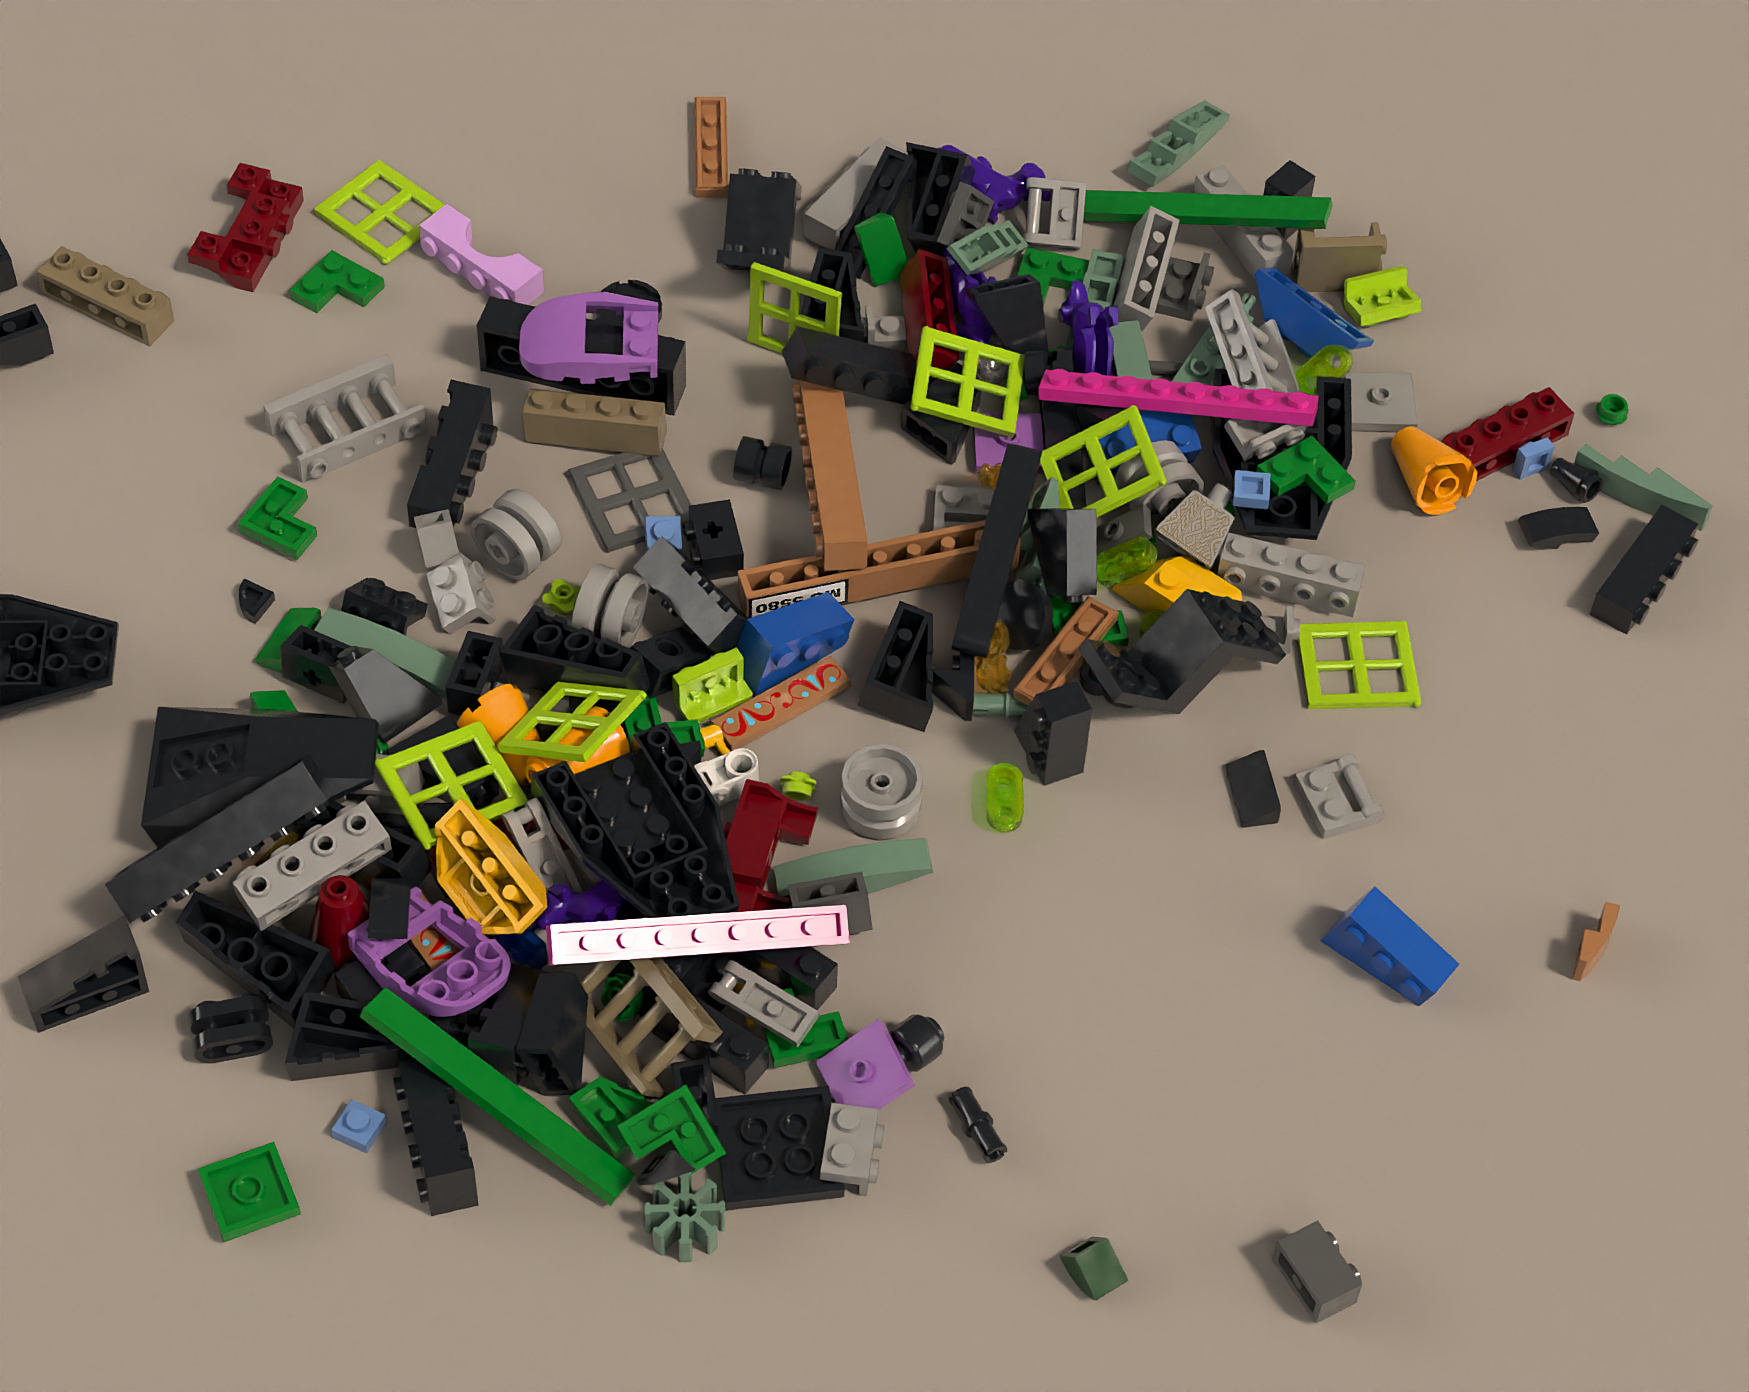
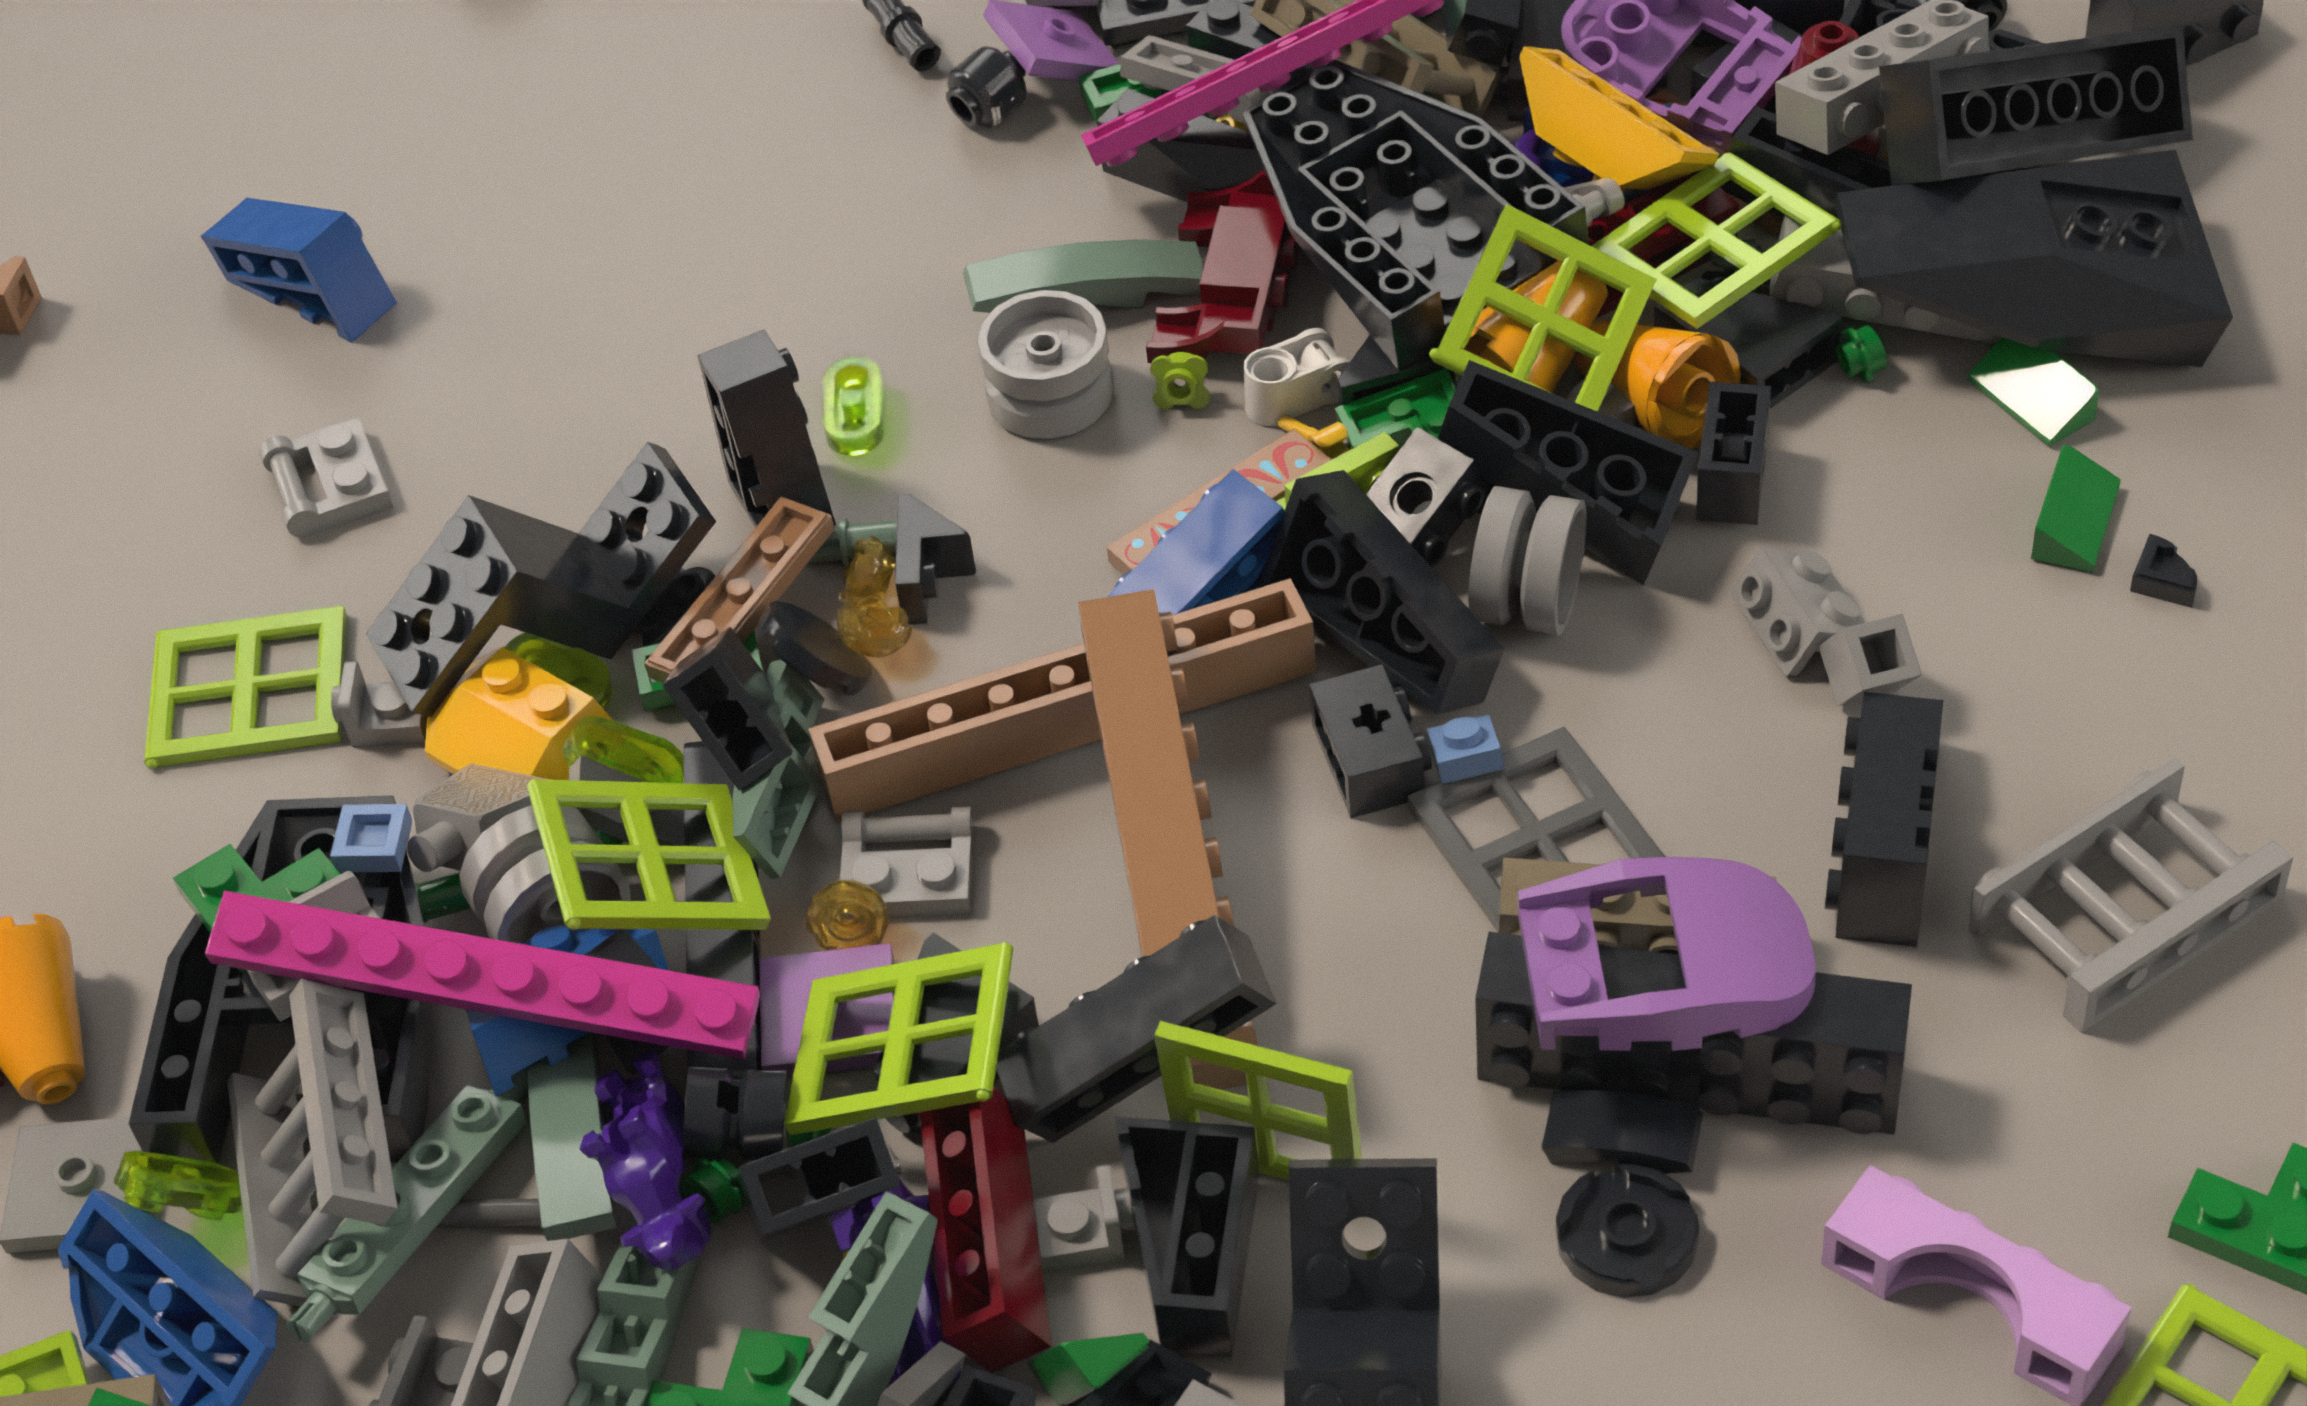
camera: 175 degrees left, 5 degrees down
(273, 522) = (2187, 687): green plate -> none
(307, 661) = (1995, 439): black brick -> none
(382, 691) = (1873, 388): slope -> none
(383, 605) = (1929, 568): black bracket -> none
(389, 908) = (1751, 59): black slope -> none
(414, 658) = (1915, 491): sand green slope -> none
(516, 534) = (1726, 663): light grey wheel -> none
(561, 604) = (1621, 630): lime plate -> none
(762, 462) = (1274, 883): black wheel -> none
(834, 891) = (1116, 204): dark grey brick -> none
(902, 671) = (1021, 545): black wedge -> none
(996, 550) = (845, 685): black beam -> none
(1254, 790) = (457, 462): black slope -> none
(1291, 574) = (253, 765): light grey brick -> none

